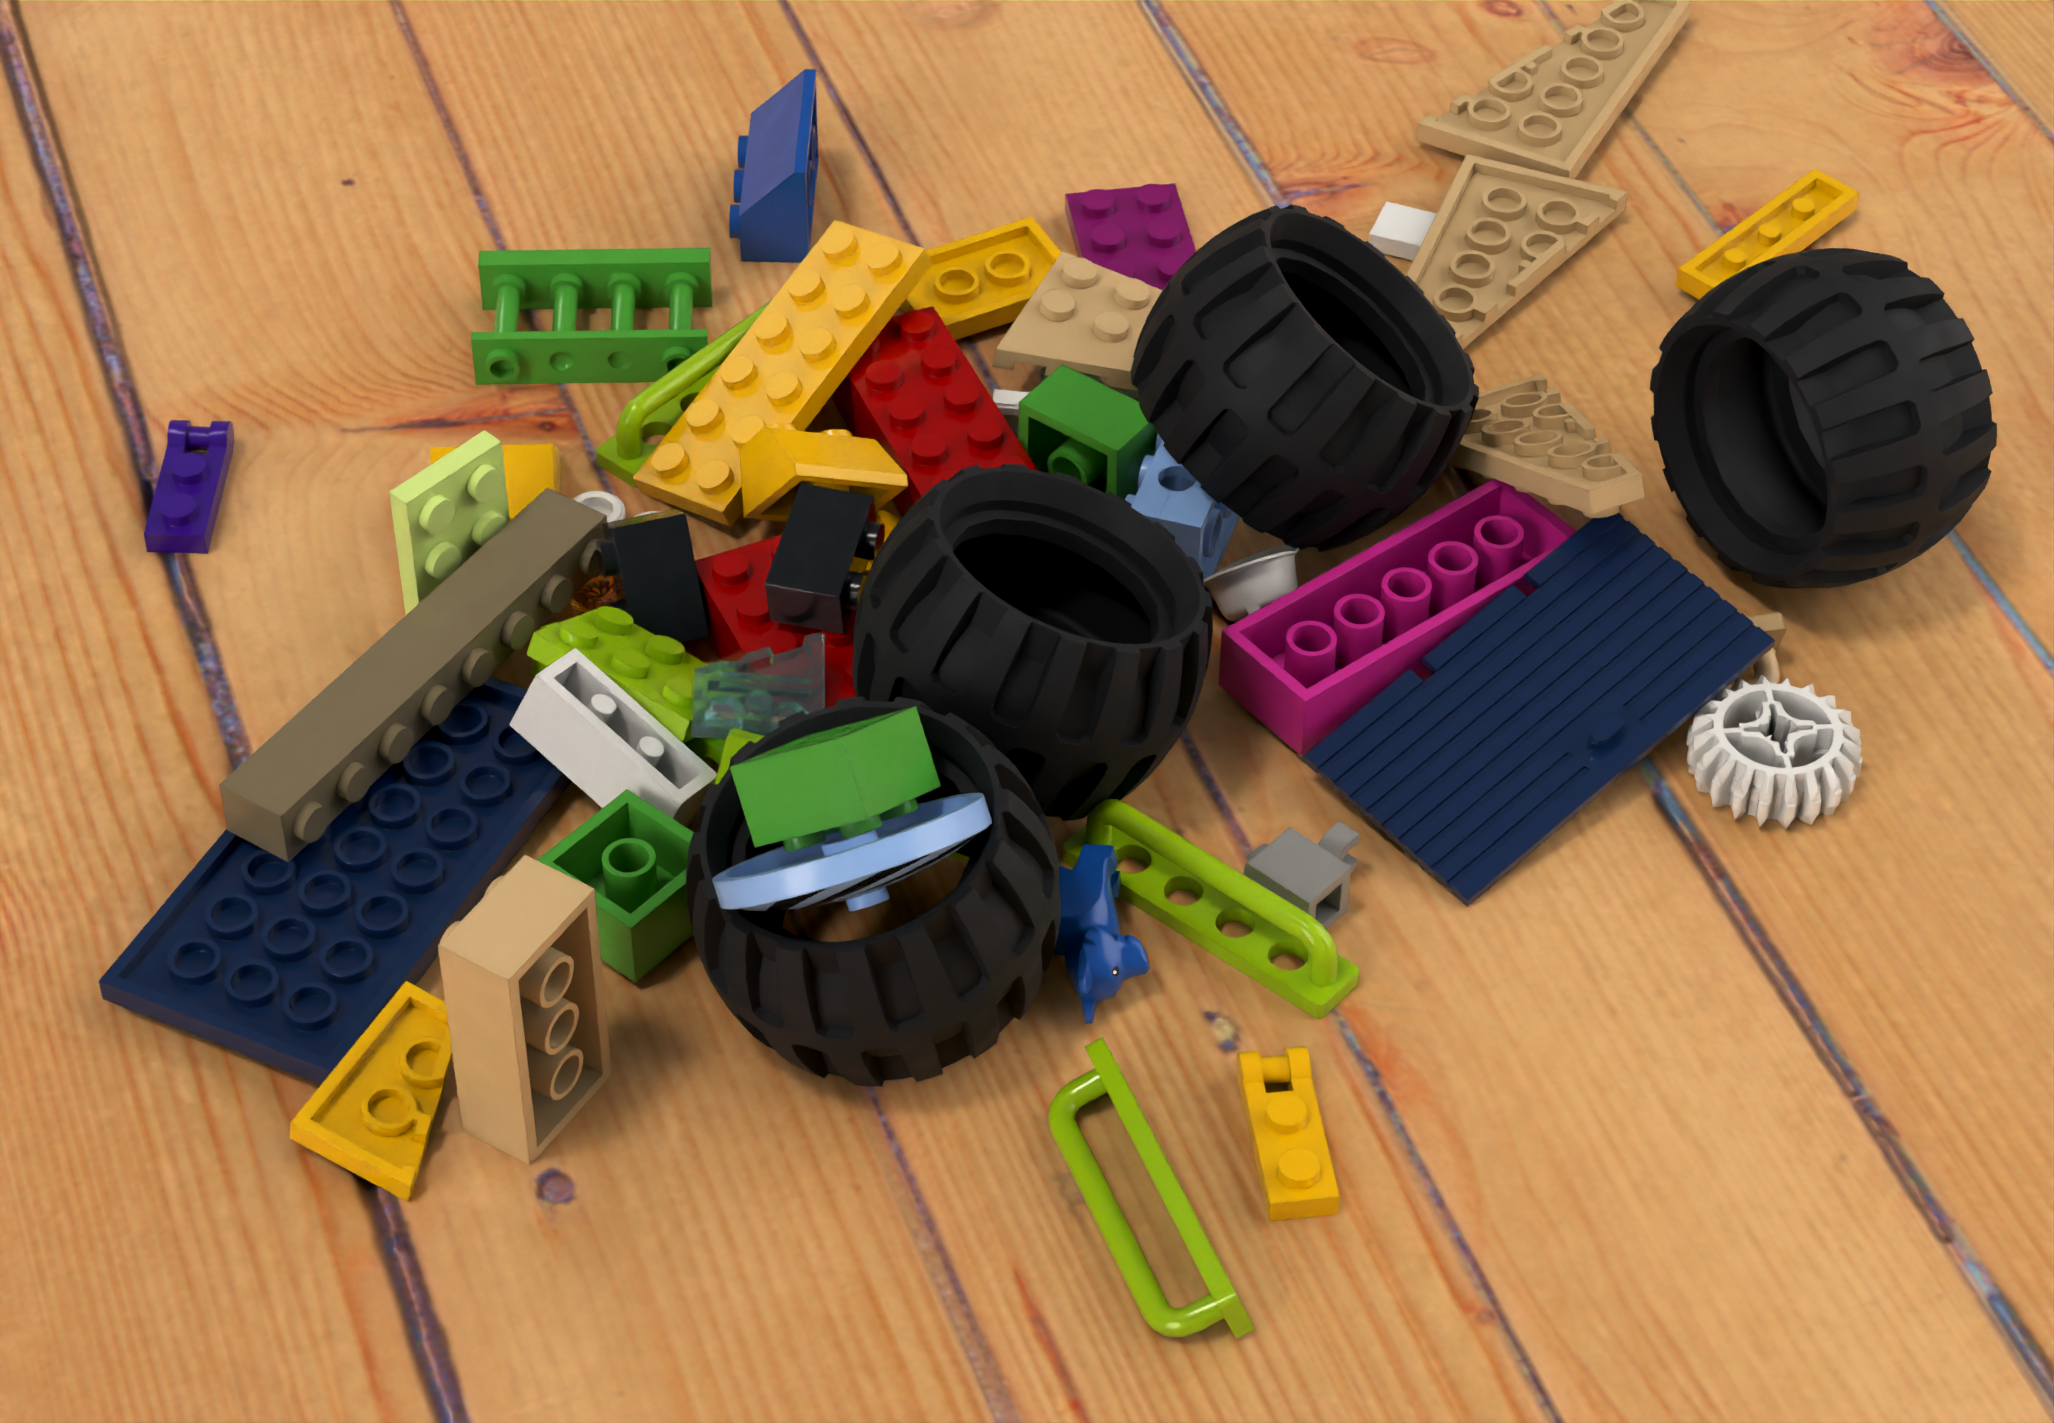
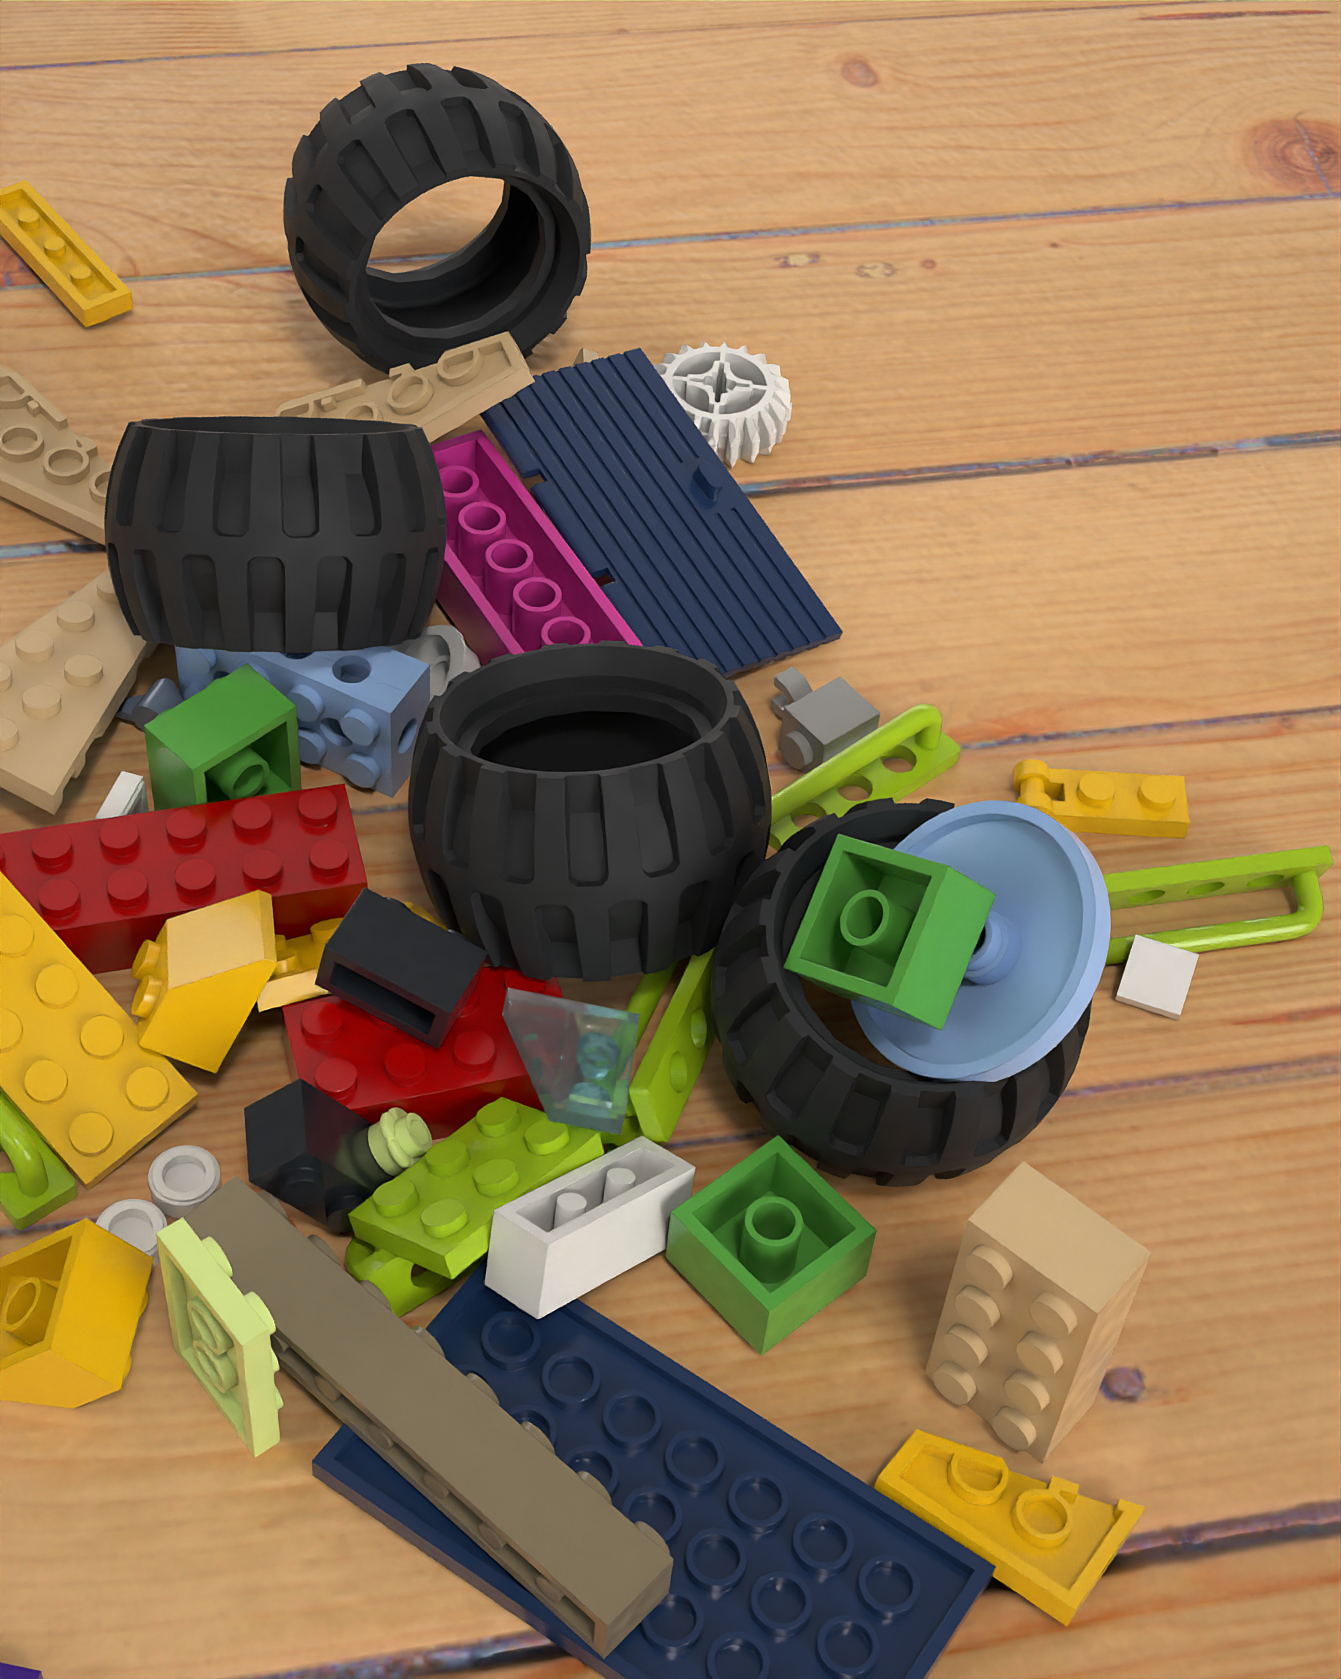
camera: 85 degrees left, 5 degrees up
(693, 615) = (398, 1140): none -> yellowish green plate
(1039, 1180) = (1157, 977): none -> white tile

